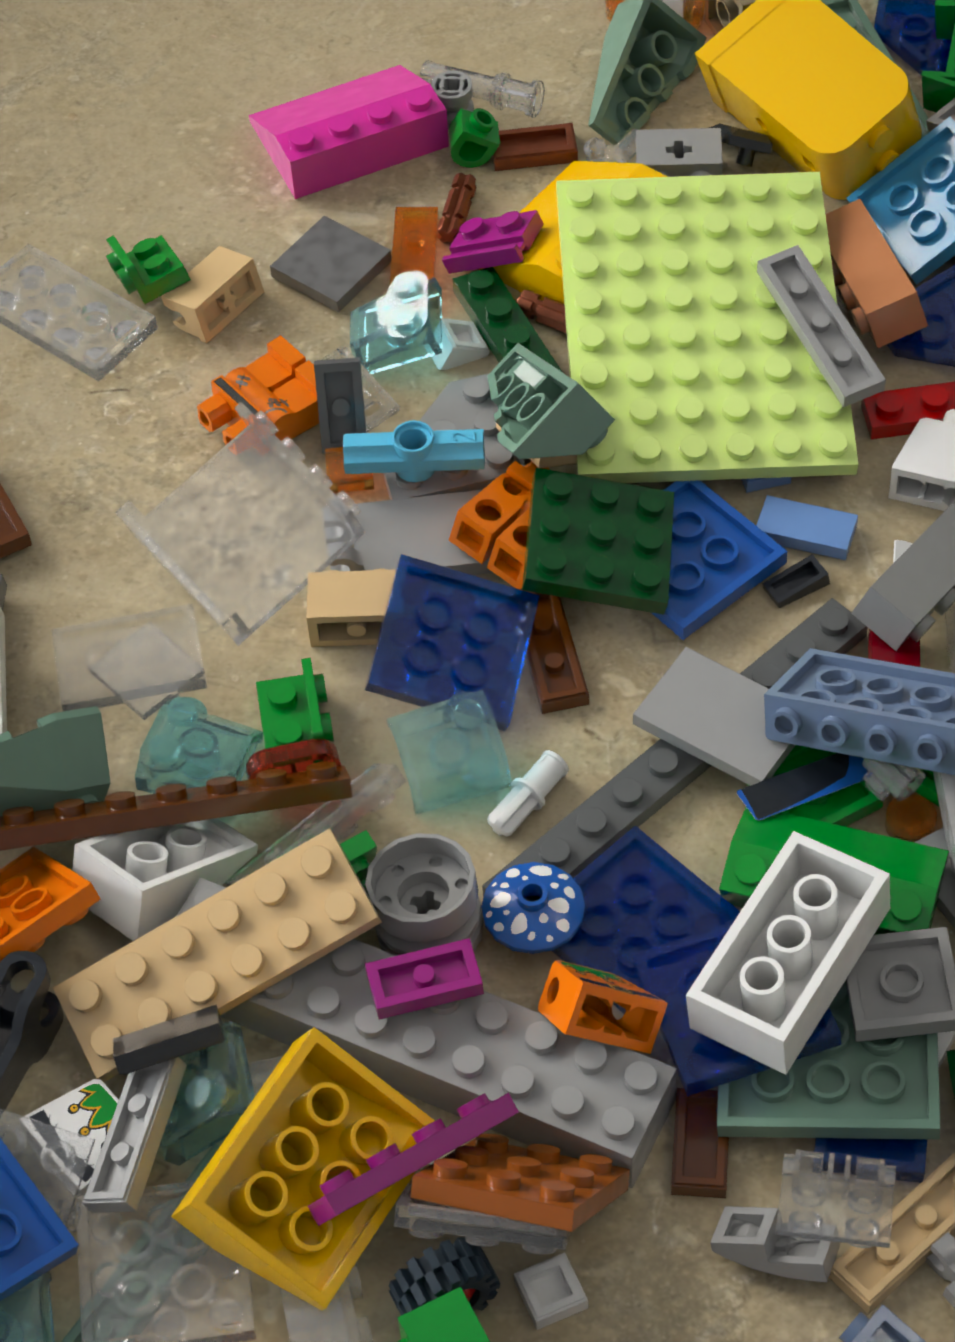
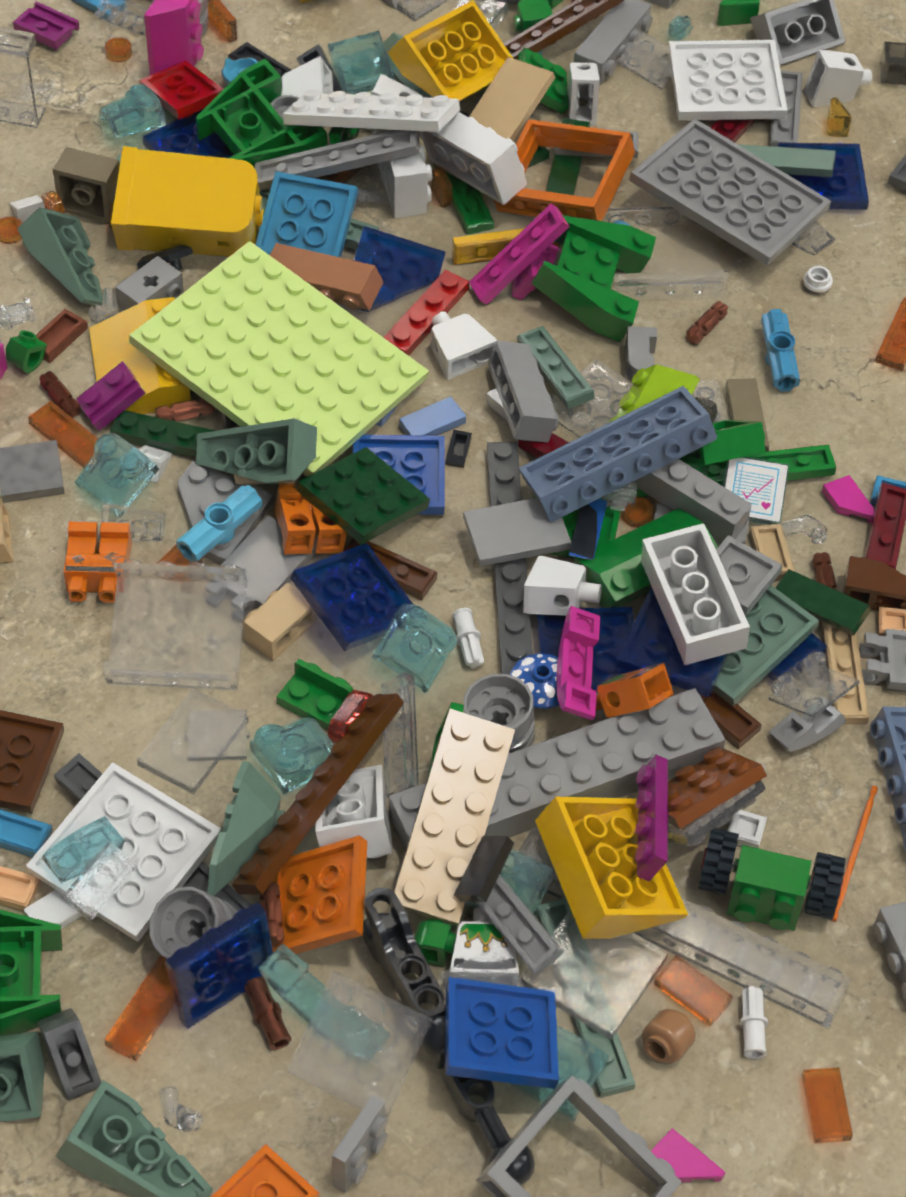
camera: 55 degrees left, 0 degrees up
(61, 1070) = (435, 941): none -> green plate
(339, 400) = (147, 530): dark grey plate -> none
(424, 978) = (557, 742): magenta plate -> none
(579, 921) = (575, 663): none -> dark pink slope
(678, 818) = (557, 586): none -> white torso
(821, 326) = (346, 314): light grey plate -> none

